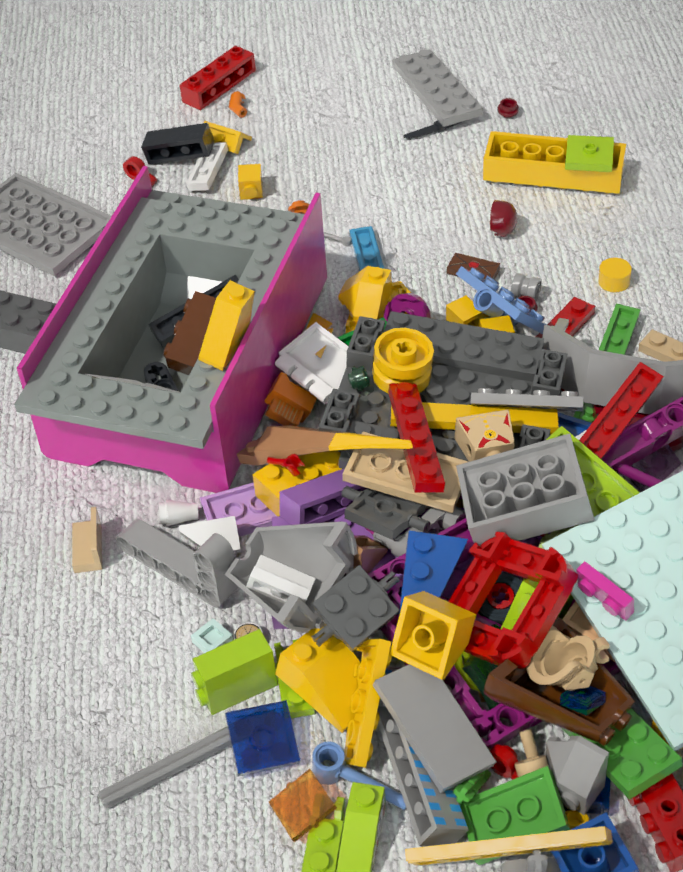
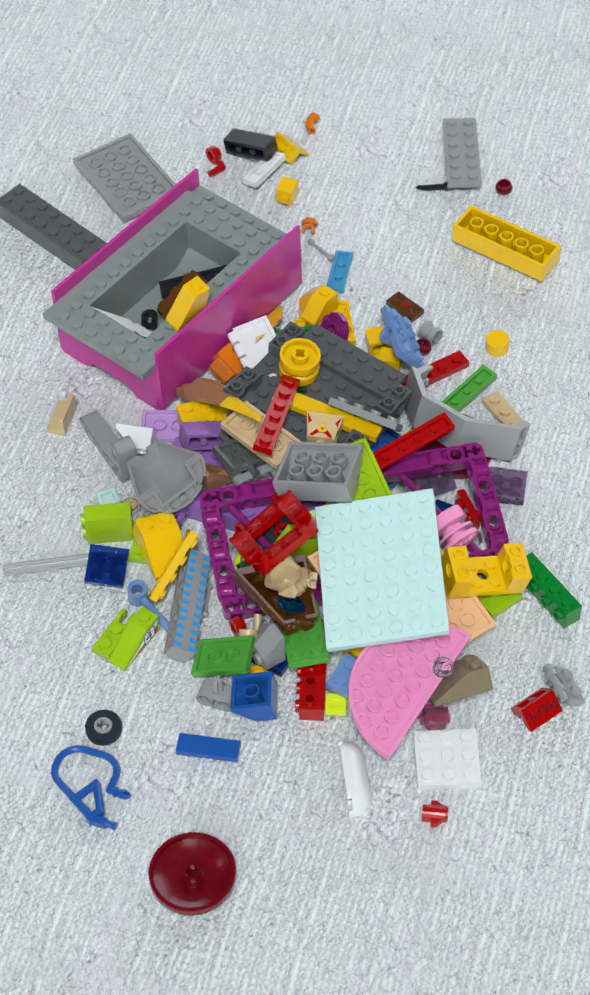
camera: 20 degrees right, 5 degrees up
(175, 512) = (124, 414): white cone -> none
(217, 77) = (307, 95): red brick -> none
(279, 580) = (153, 476): white panel -> none
(292, 462) = (199, 406): red hand -> none
(302, 805) = (111, 610): clear orange piece -> none
(355, 608) = (188, 508): dark grey plate -> none
(359, 378) = (269, 363): clear green plate -> none
(429, 562) = (241, 500): blue wing -> none
(431, 633) = (221, 536): yellow slope -> none
(434, 726) = (202, 590): light grey tile -> none
(468, 789) = (211, 631): bright green axle -> none
(503, 218) = (443, 275): dark red hair -> none
(509, 846) = (208, 669): yellow tile -> none
(589, 153) = (528, 245): lime plate -> none
(612, 597) = (332, 553): dark pink plate -> none

